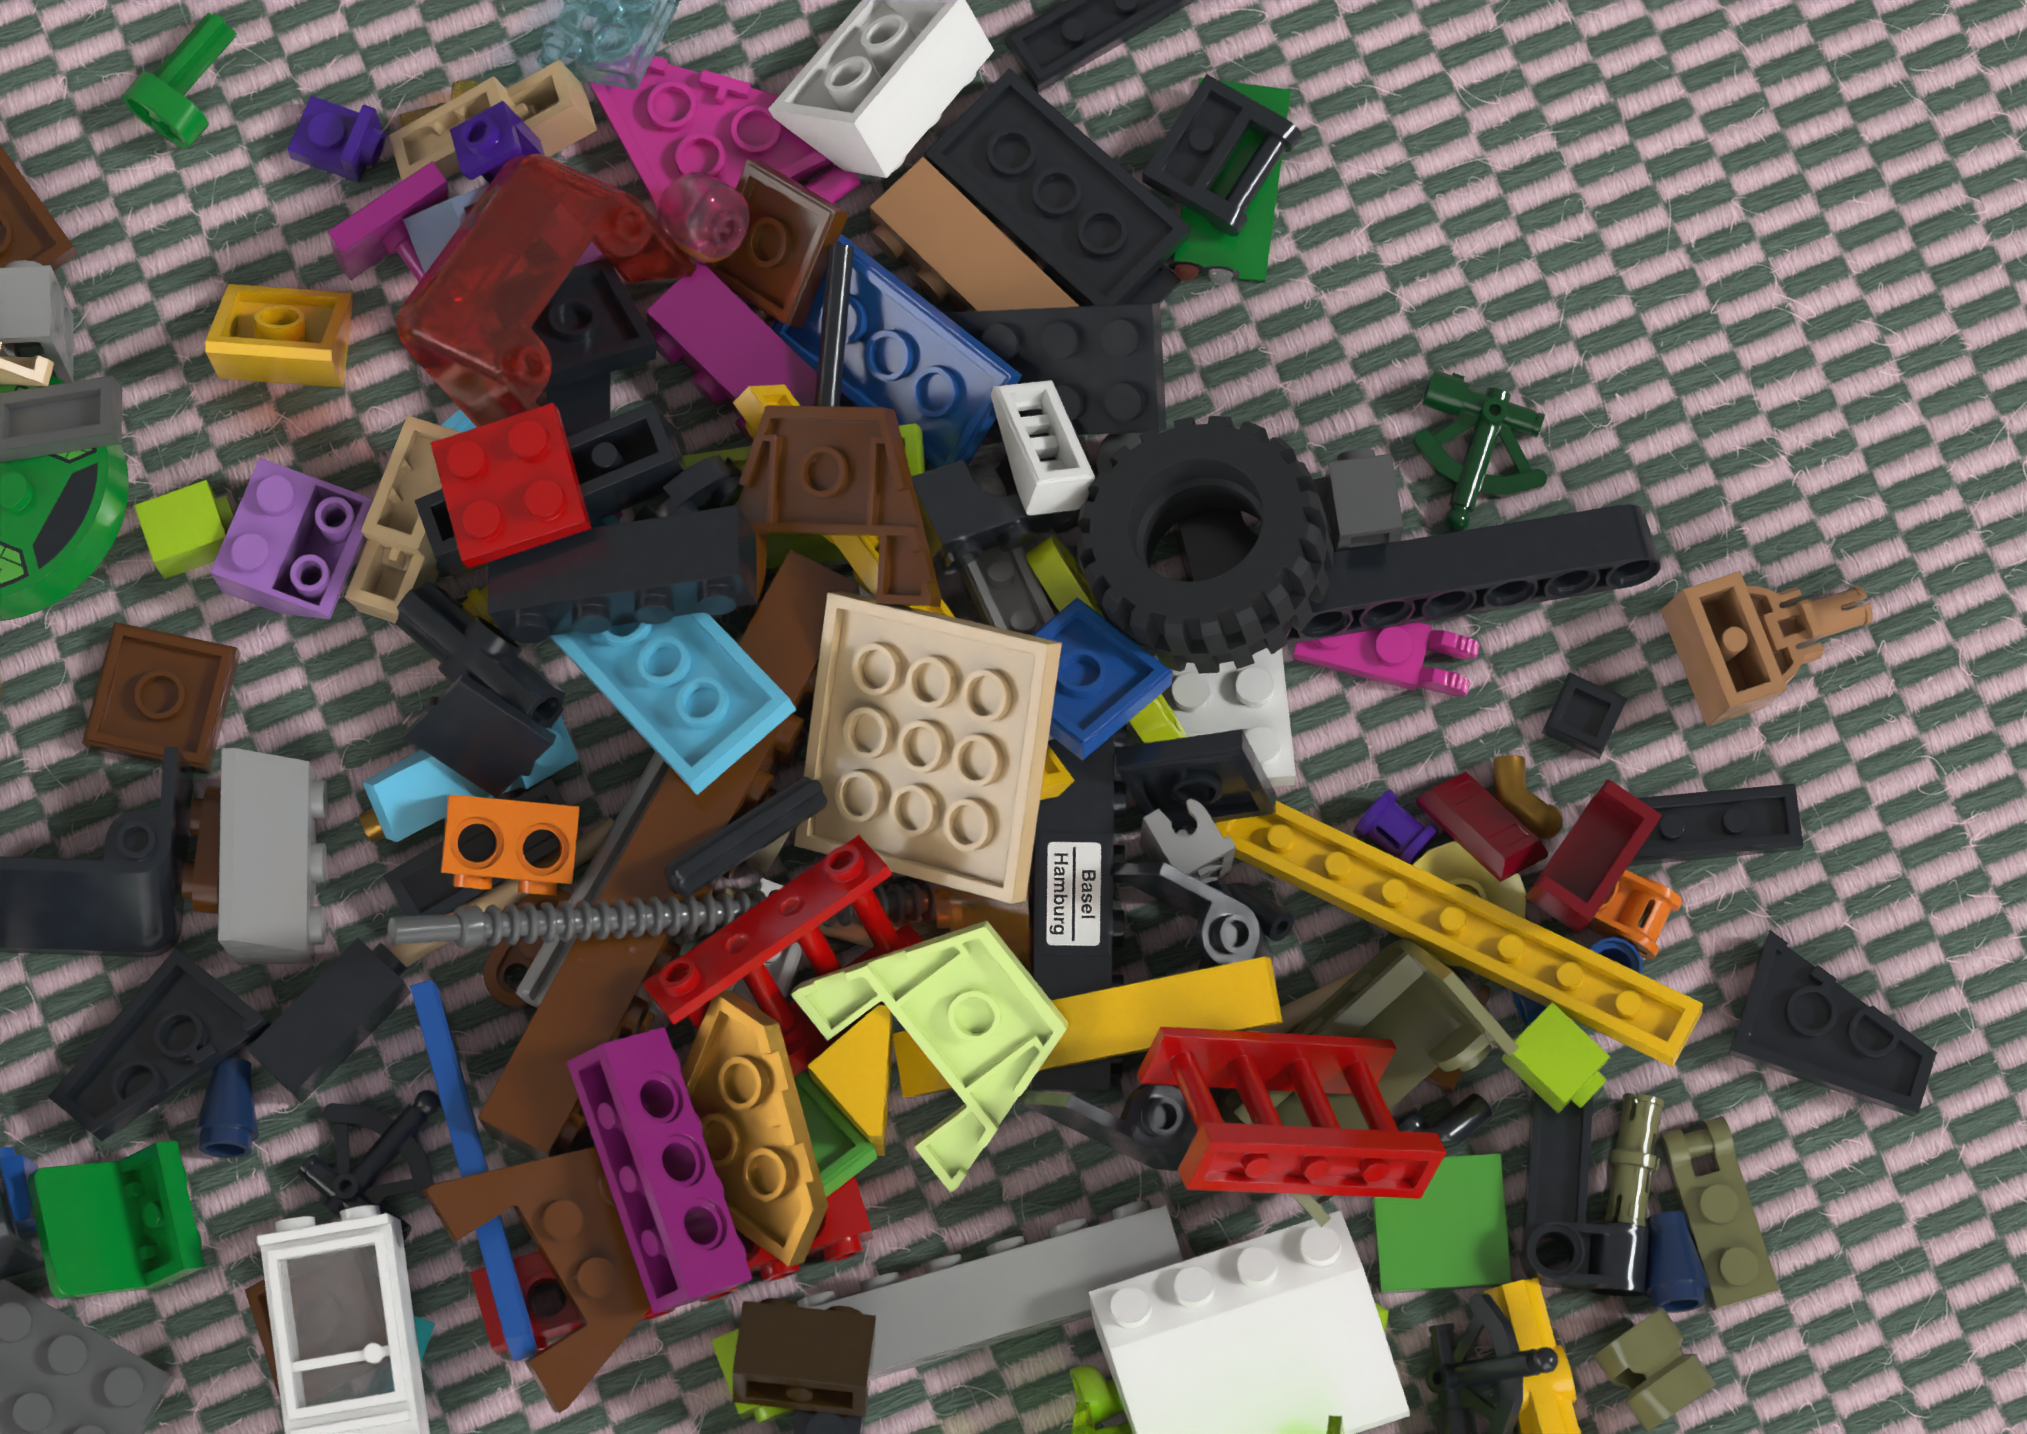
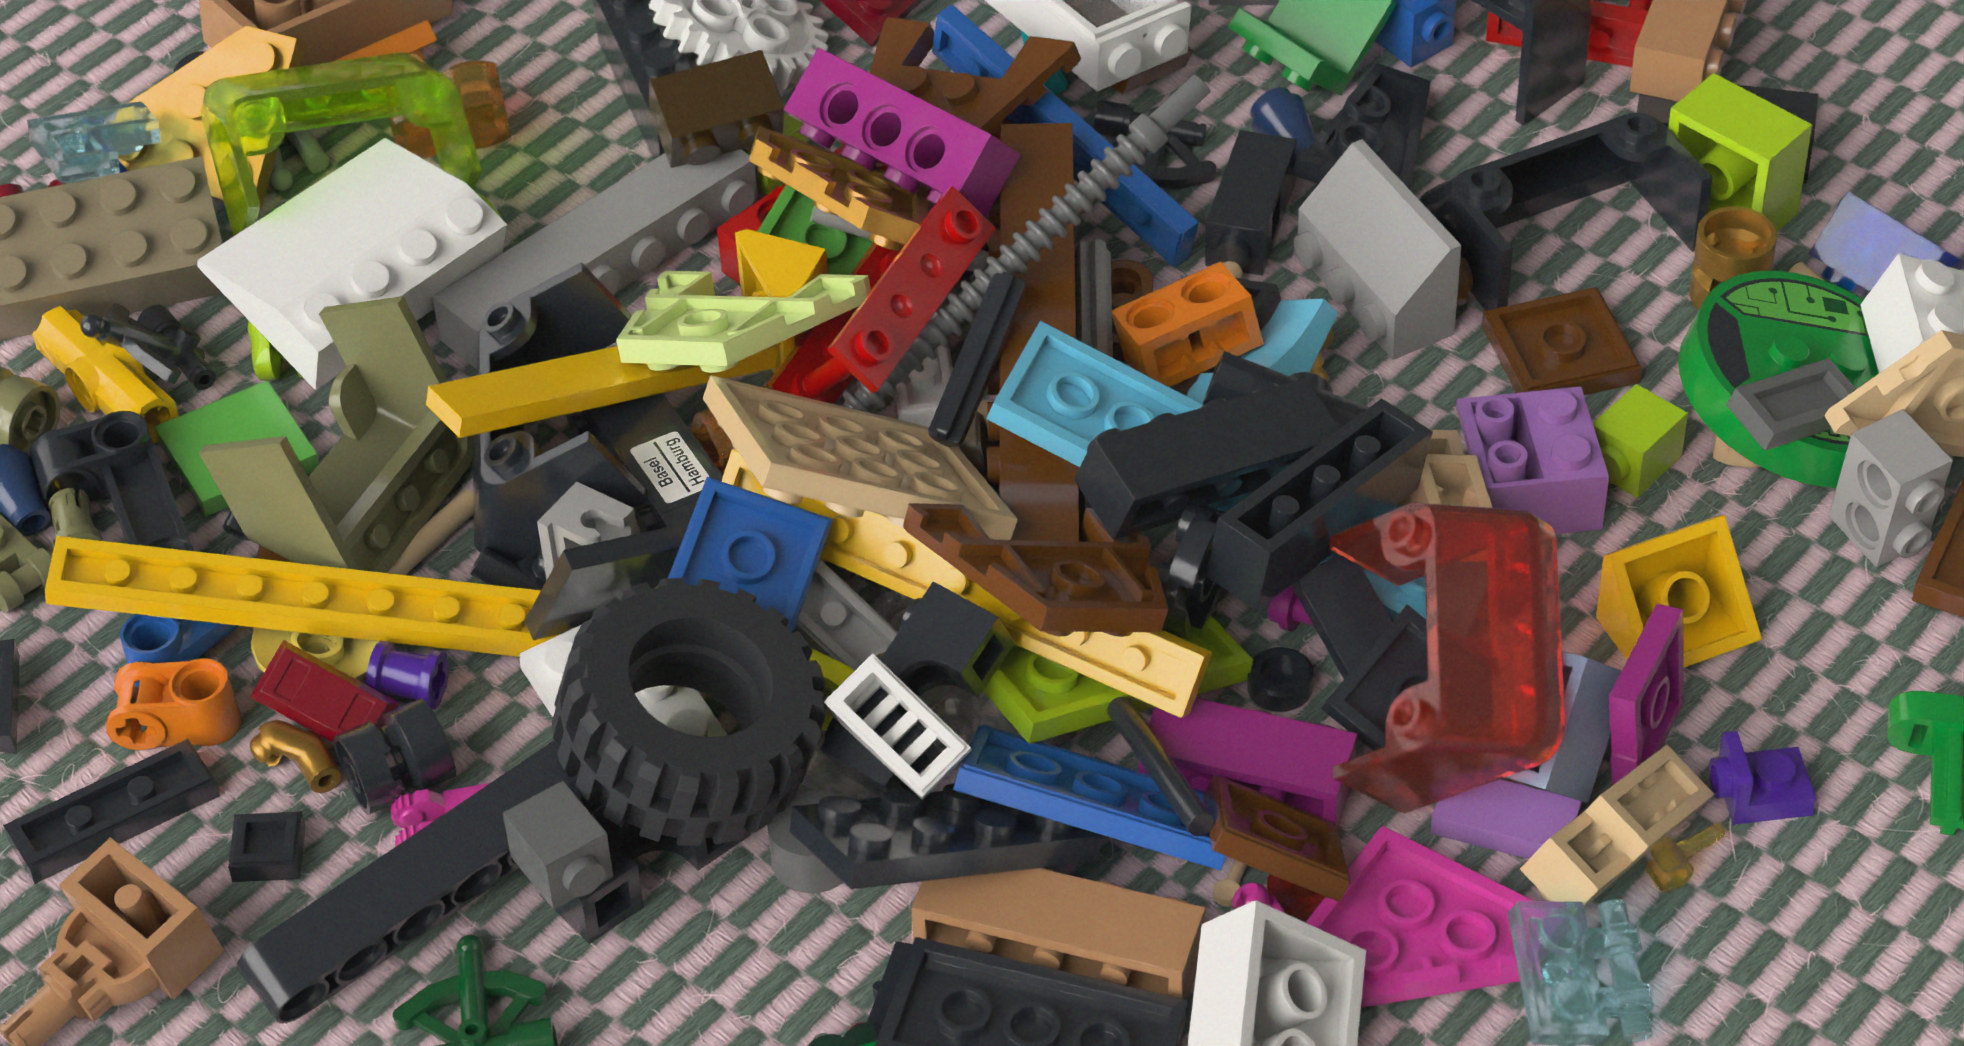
camera: 155 degrees right, 30 degrees down
(480, 736) = (1258, 341): black piece -> none
(491, 140) = (1602, 759): dark purple bracket -> none
(510, 485) = (1351, 450): red plate -> none
(699, 215) = (1356, 810): clear pink head -> none
(1281, 1157) = (327, 324): red fence -> none
(1446, 728) = (416, 746): none -> black wheel
(1558, 1060) = (171, 514): lime brick -> none
(1593, 856) = (197, 666): dark red panel -> none

